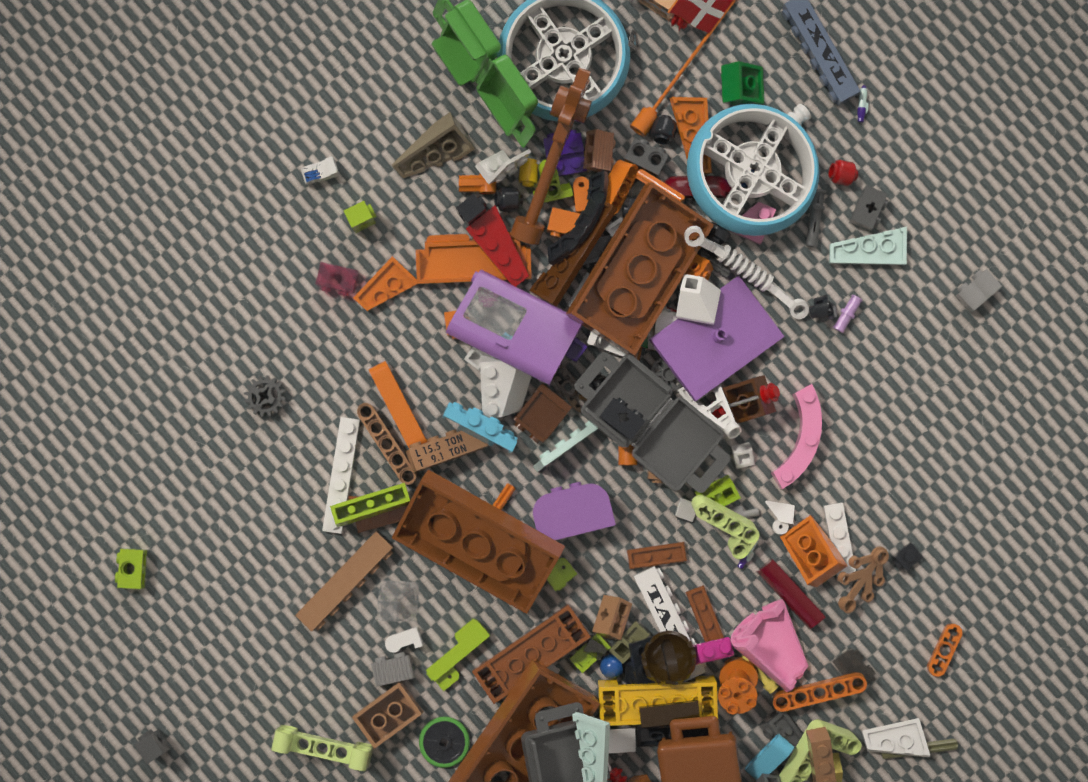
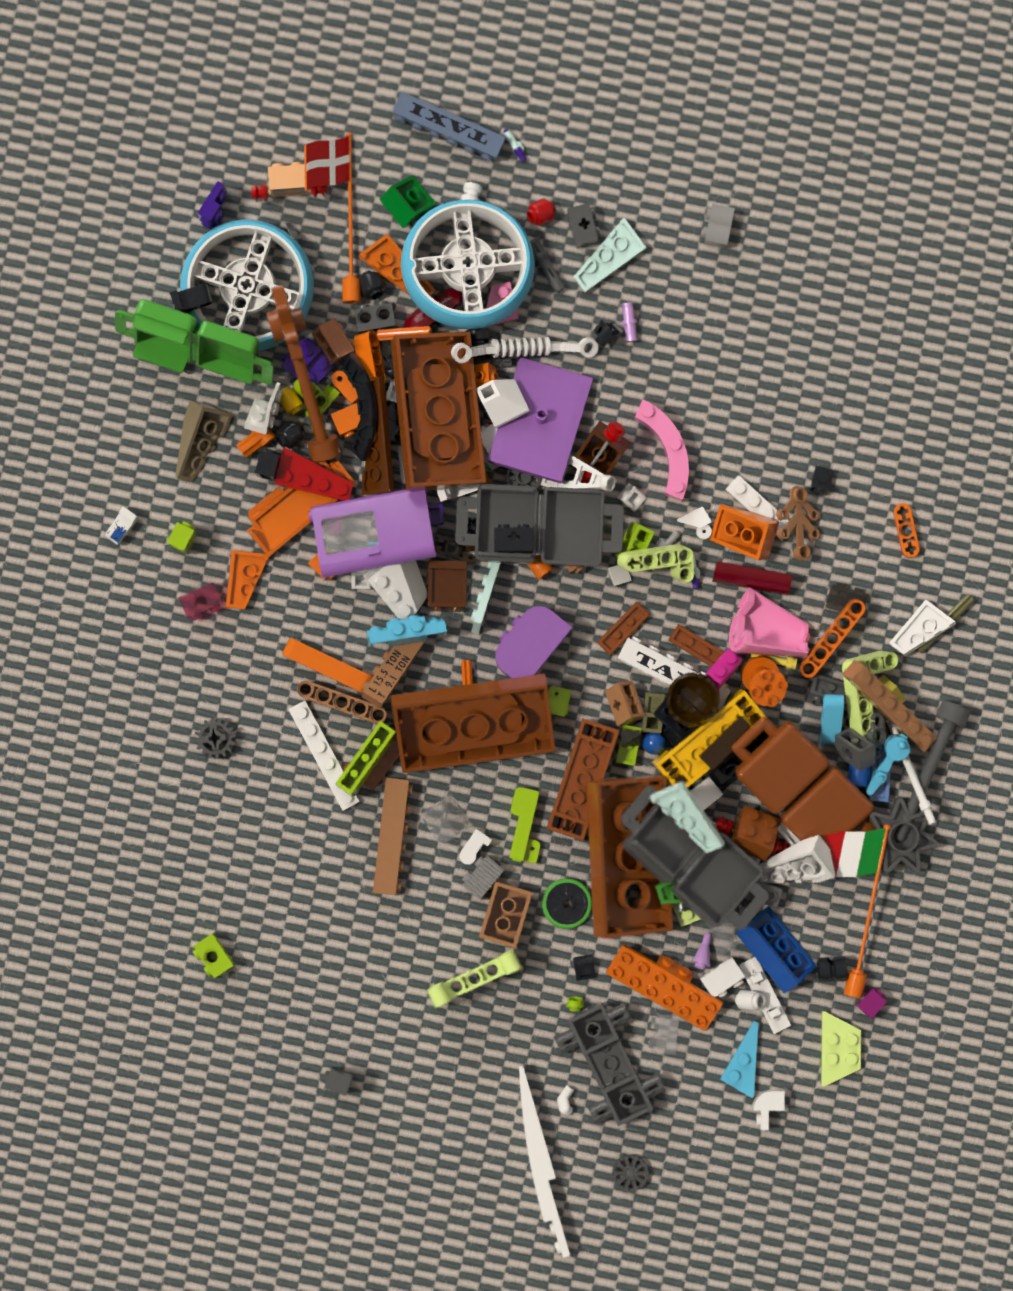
camera: 40 degrees left, 0 degrees up
(510, 30) = (191, 298): none -> black tile

